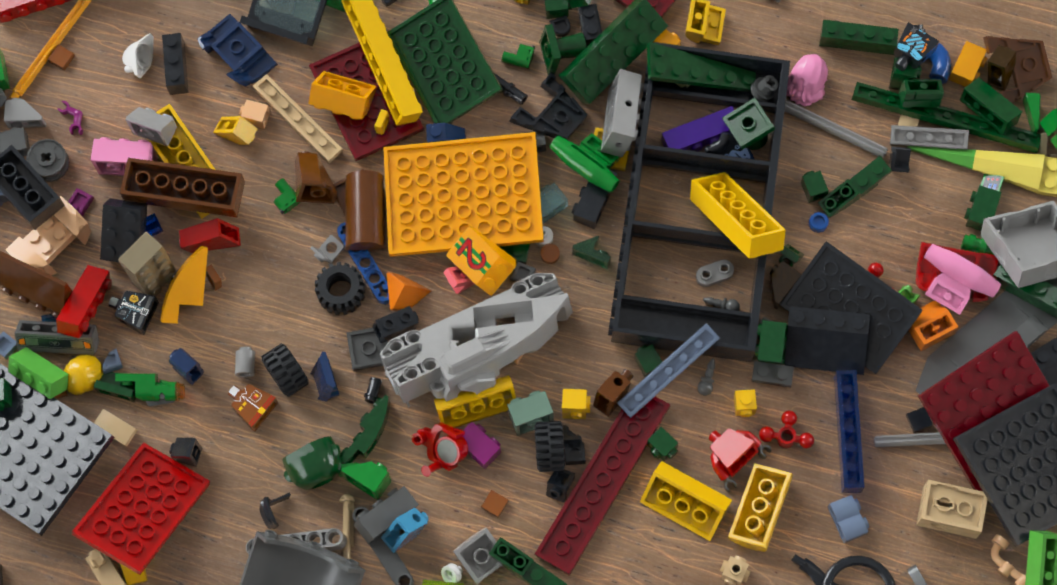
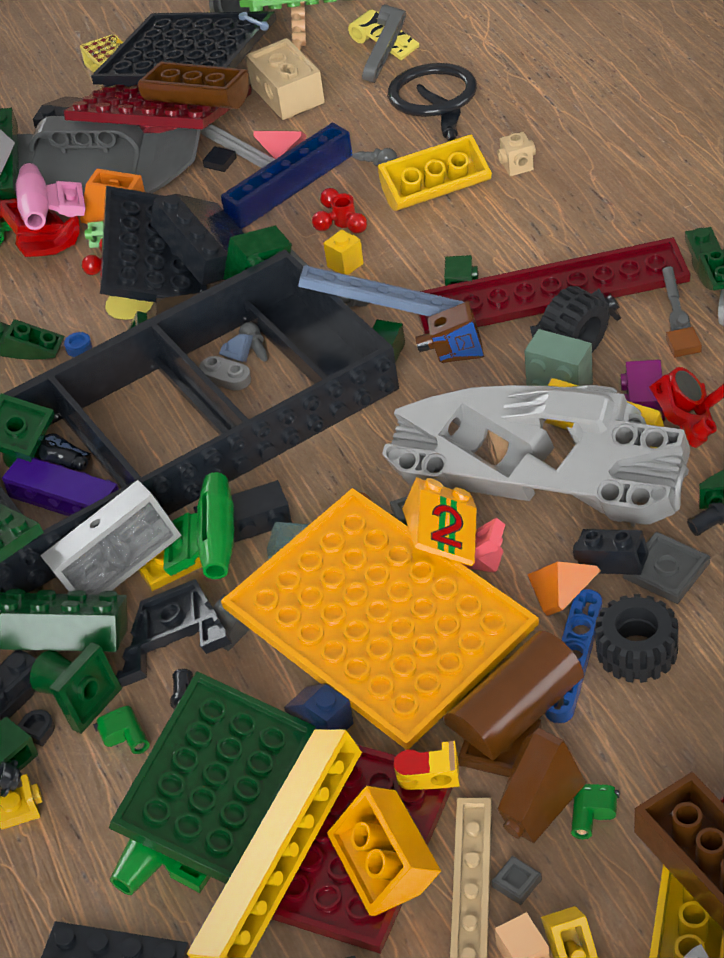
camera: 130 degrees left, 25 degrees down
(287, 142) = (516, 880): none -> dark grey tile
(322, 253) = (613, 699): light grey bracket -> none
(361, 143) = (428, 769): none -> yellow leg
(382, 122) = (374, 771): yellow tile -> none
(513, 519) = (678, 319): none -> dark grey piece
(575, 404) = (504, 345): yellow brick -> none
(588, 252) = (313, 471): clear green slope -> none
(685, 500) = (492, 225): yellow slope -> none
(725, 290) = (237, 347): none -> sand blue tile
(733, 451) = (405, 224): torso -> none
(737, 215) = (144, 351): yellow brick -> none
(814, 186) = (36, 361): dark green brick -> none
(815, 505) = (377, 157): none -> dark grey bar
(848, 518) = (373, 130): sand blue brick -> none
(900, 465) = (279, 141): none -> coral slope
(957, 414) = (195, 85): none -> reddish brown brick
(1031, 521) = (263, 25): none -> sand blue hinge

